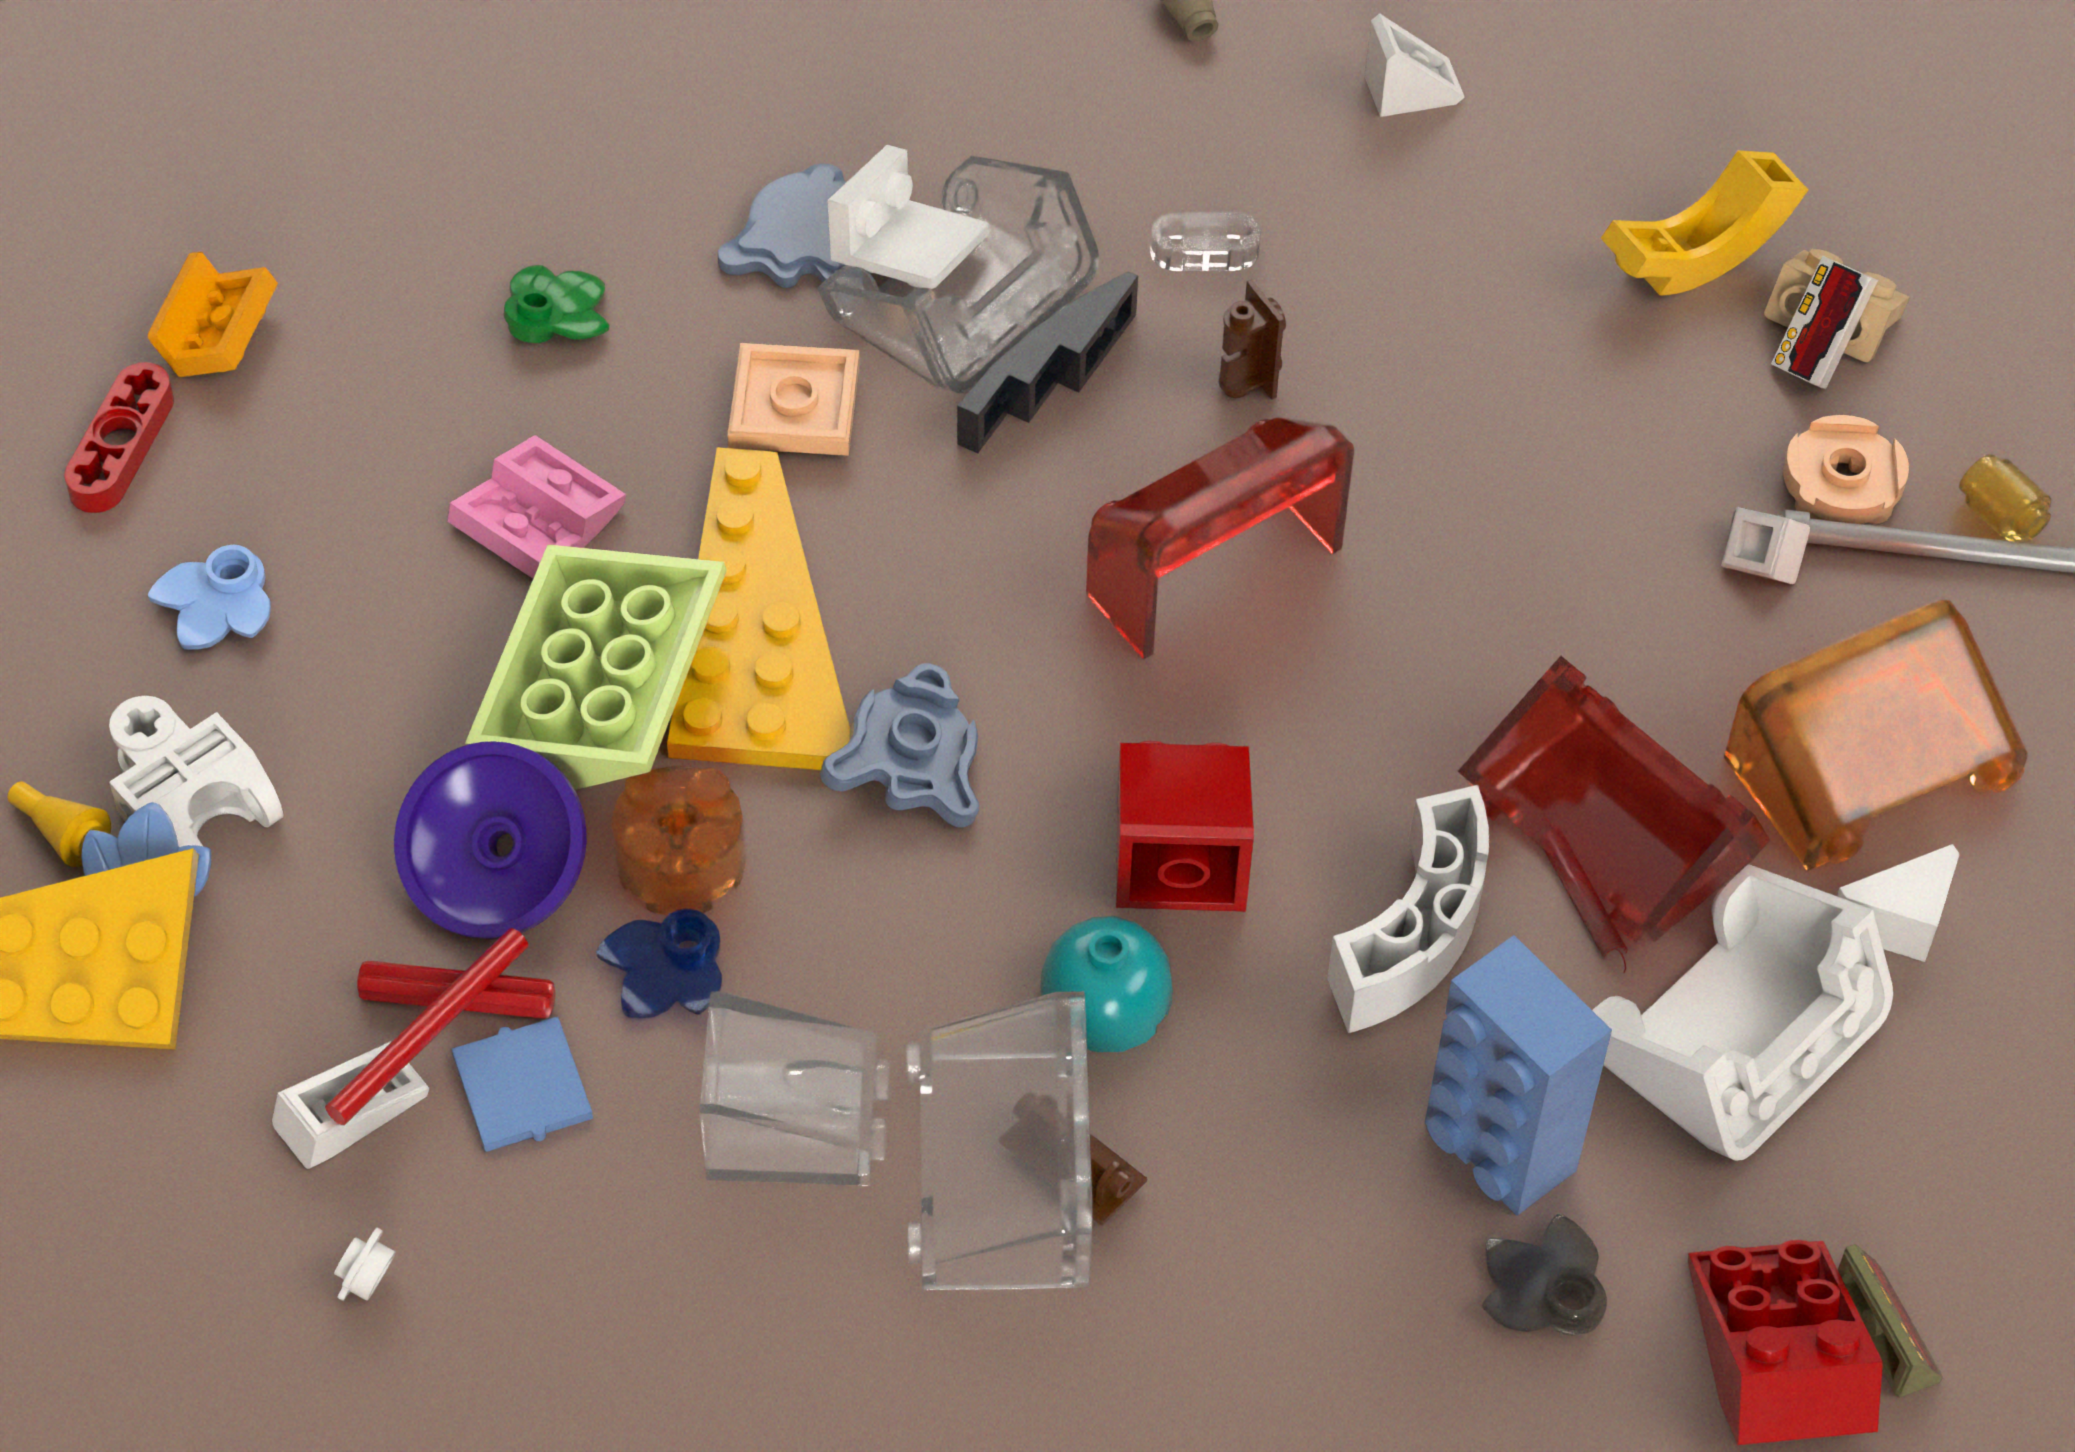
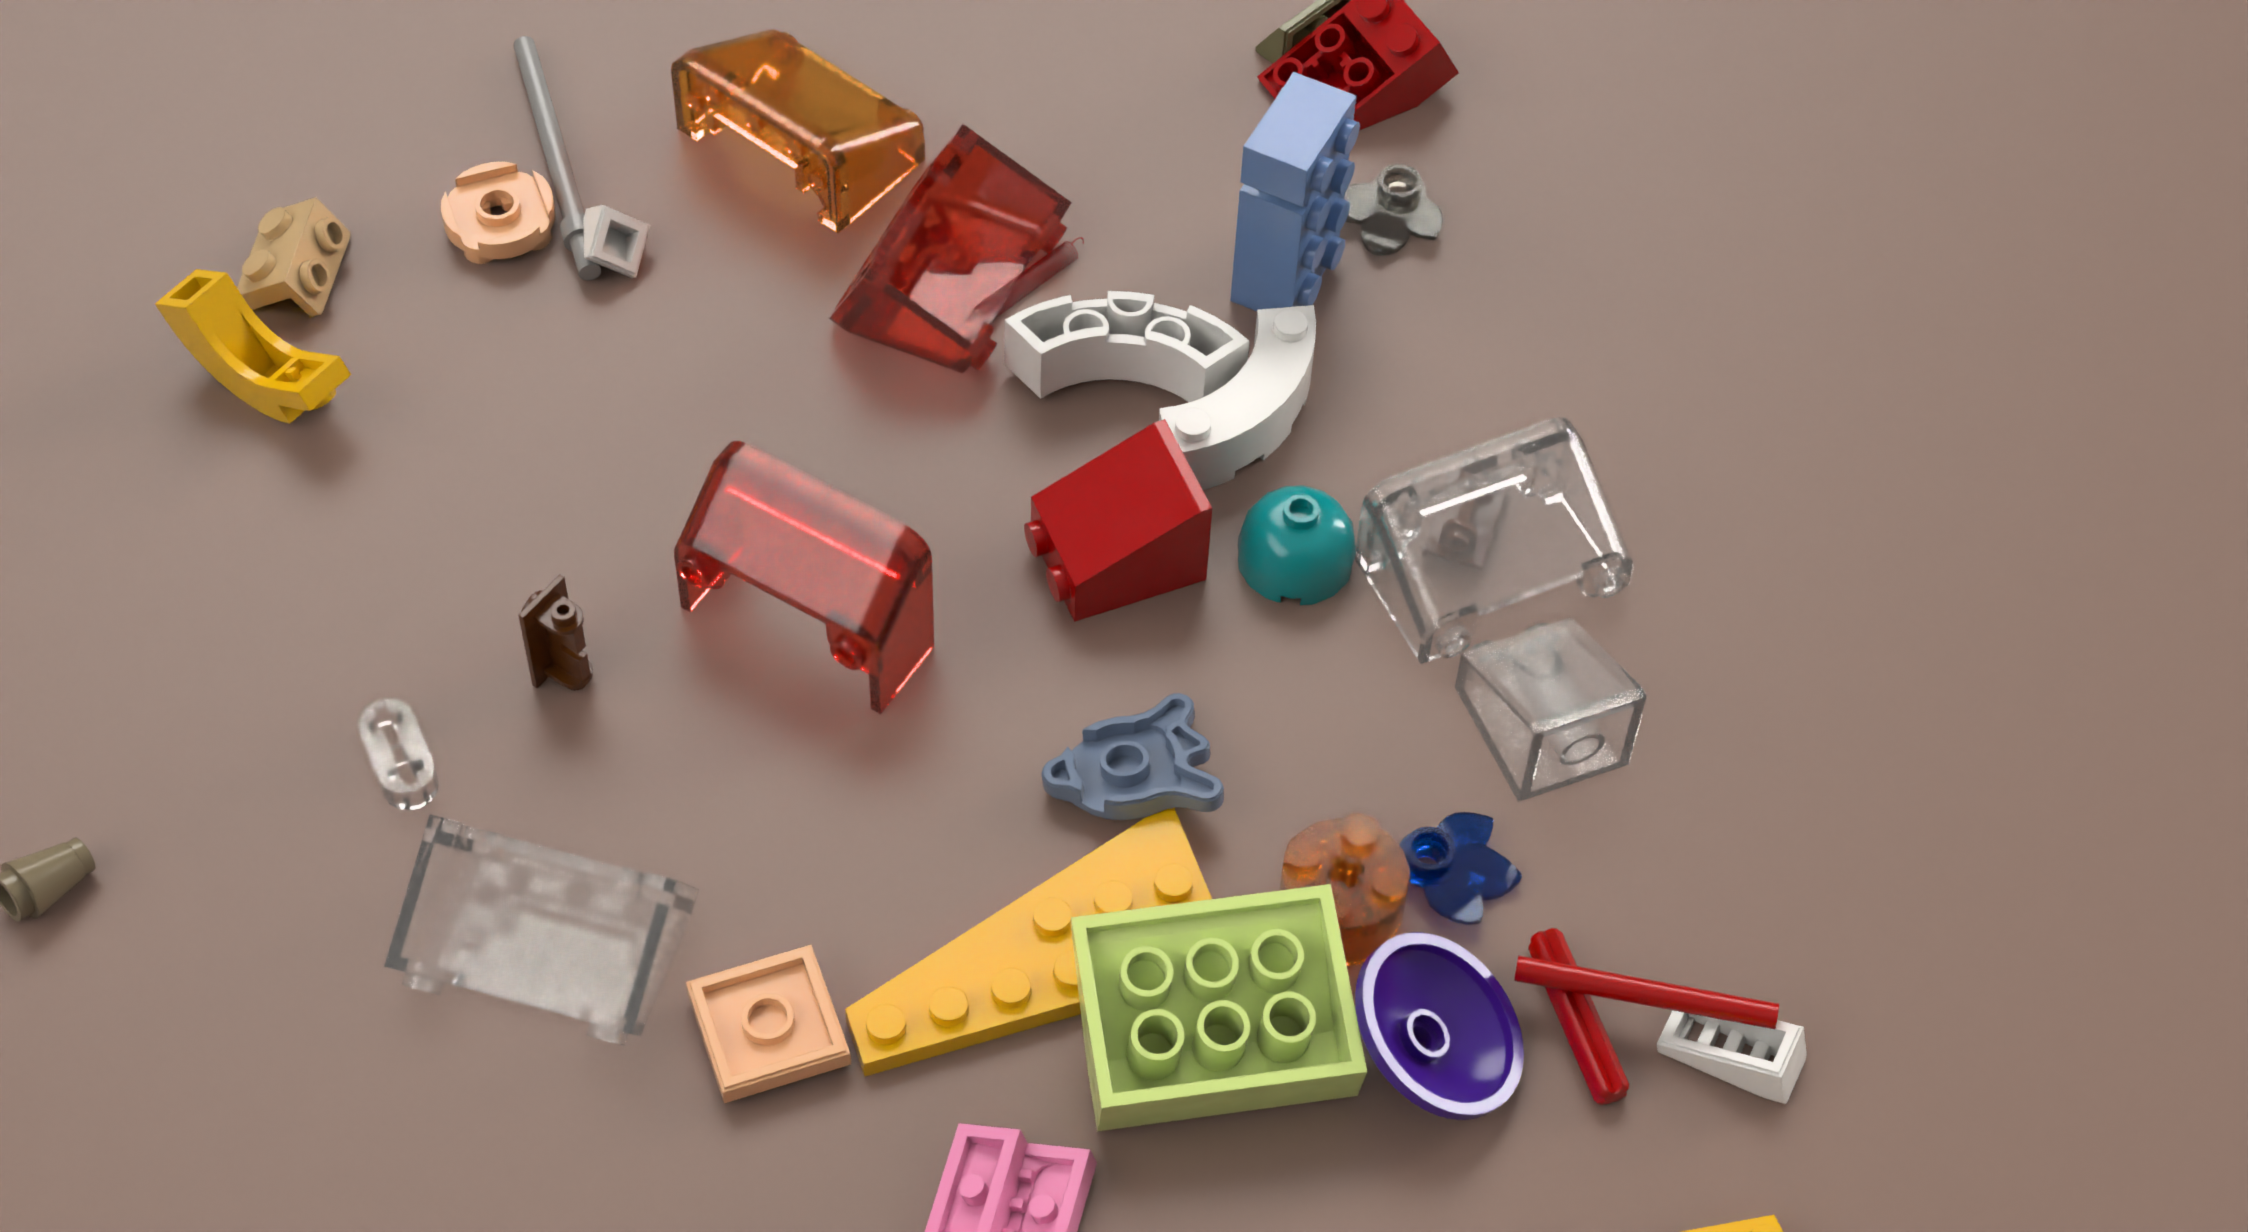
camera: 115 degrees left, 0 degrees up
(364, 1266) = (1876, 950): white plate -> none
(522, 1084) = (1630, 927): medium blue piece -> none
(787, 229) = (521, 1118): tile -> none
(892, 236) = (514, 990): white bracket -> none
(1056, 352) = (605, 810): black slope -> none
(1296, 1011) = (1256, 406): none -> white brick
(1407, 72) = (103, 654): white slope -> none
(1758, 1015) = (1107, 142): white windscreen -> none
(1824, 322) = (345, 239): slope -> none
(1907, 900) = (938, 77): white slope -> none
(2006, 498) = (489, 101): clear yellow brick -> none

